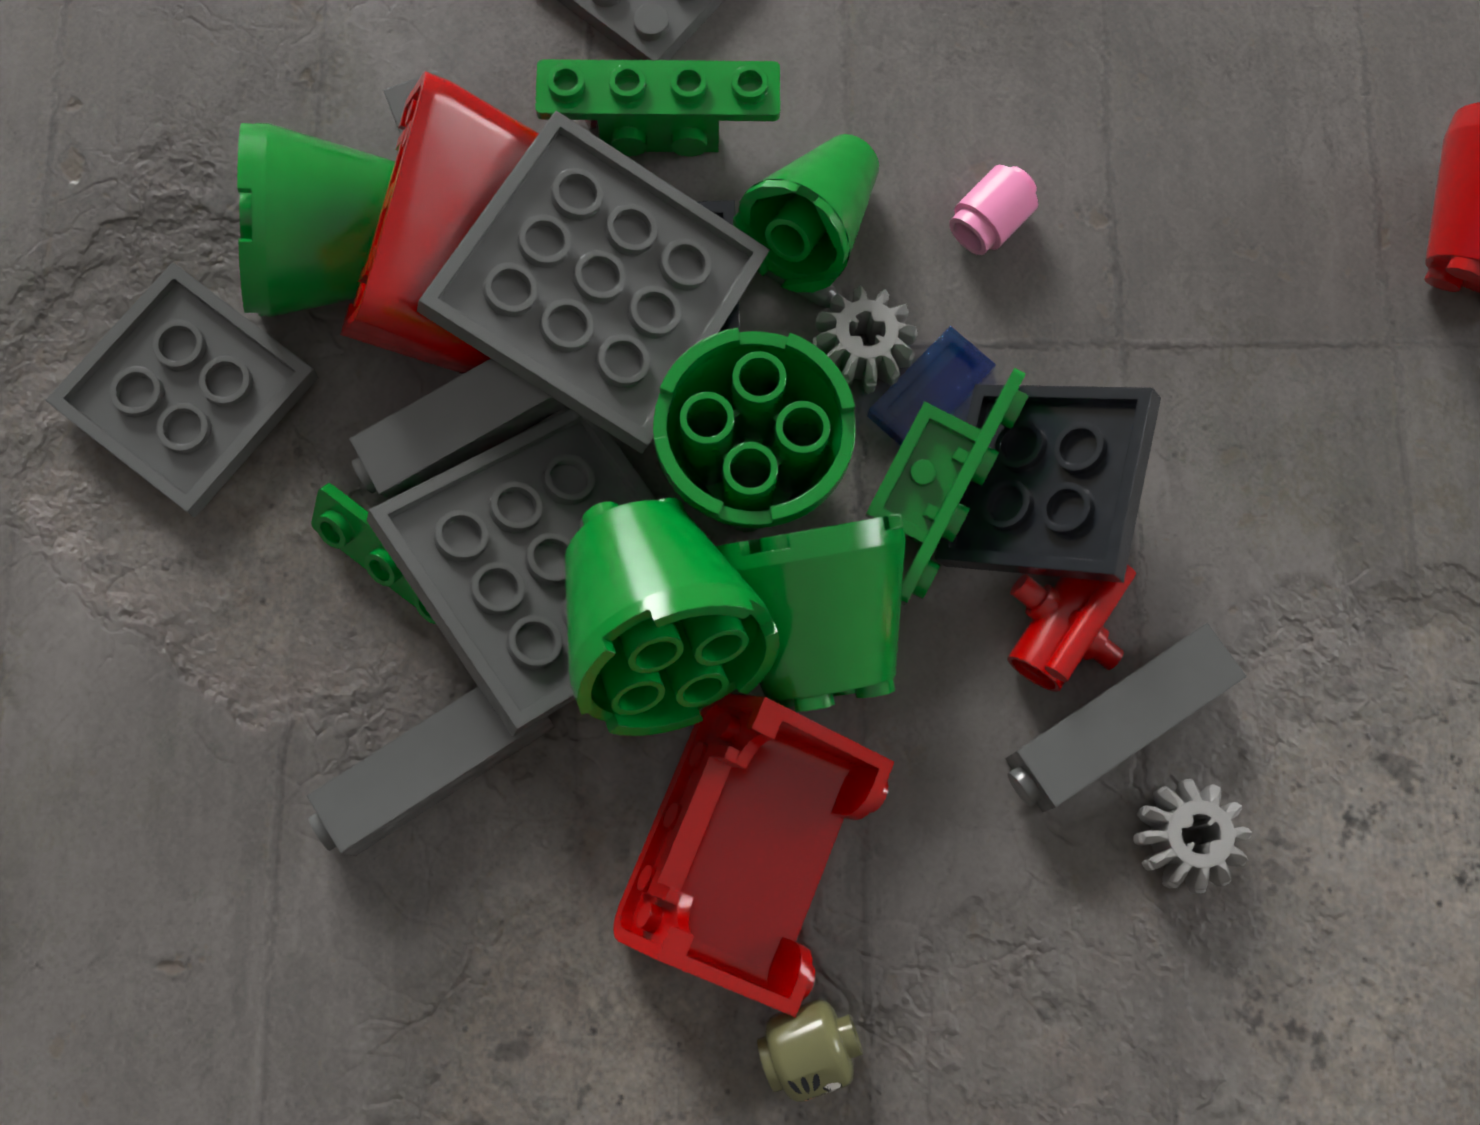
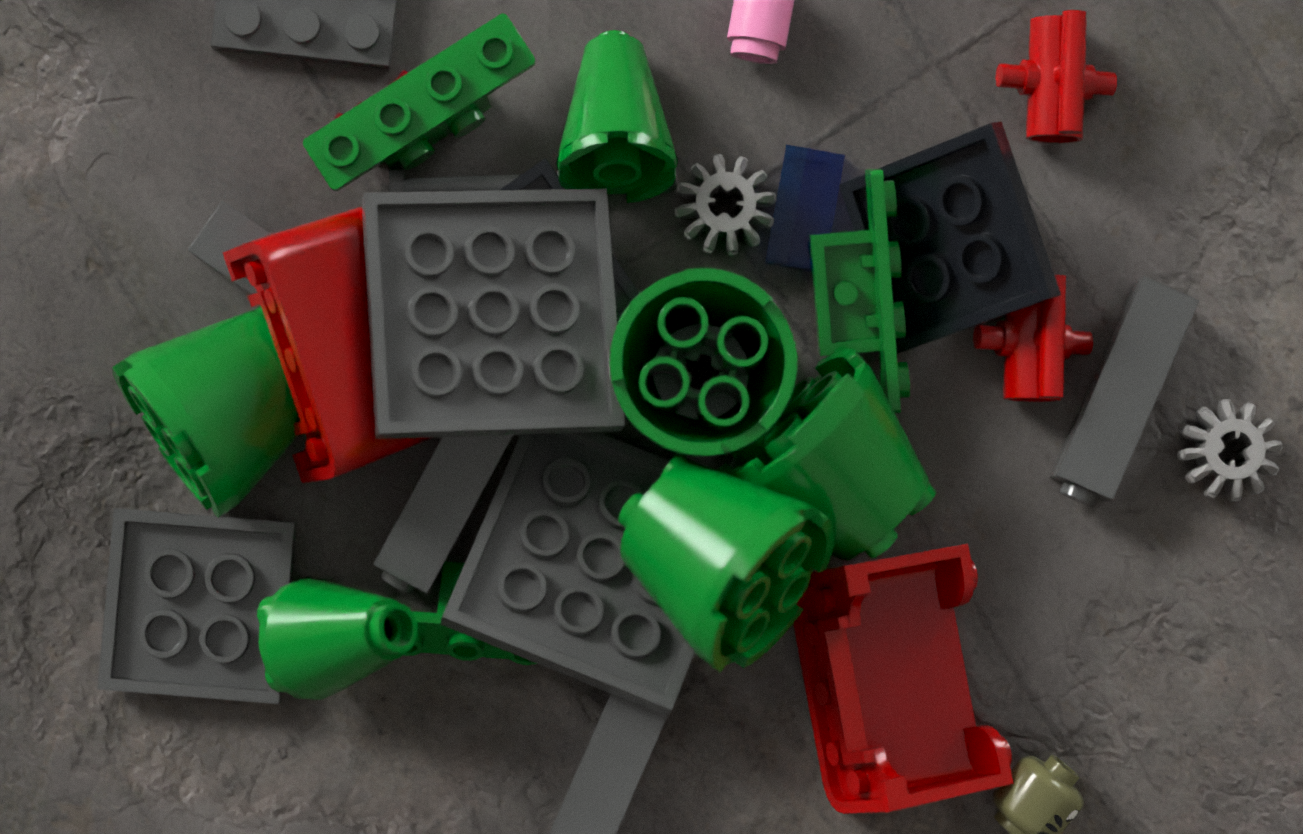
camera: 30 degrees left, 10 degrees up
(259, 473) = (329, 636): none -> green cone
(1226, 411) = (1056, 78): none -> red pin

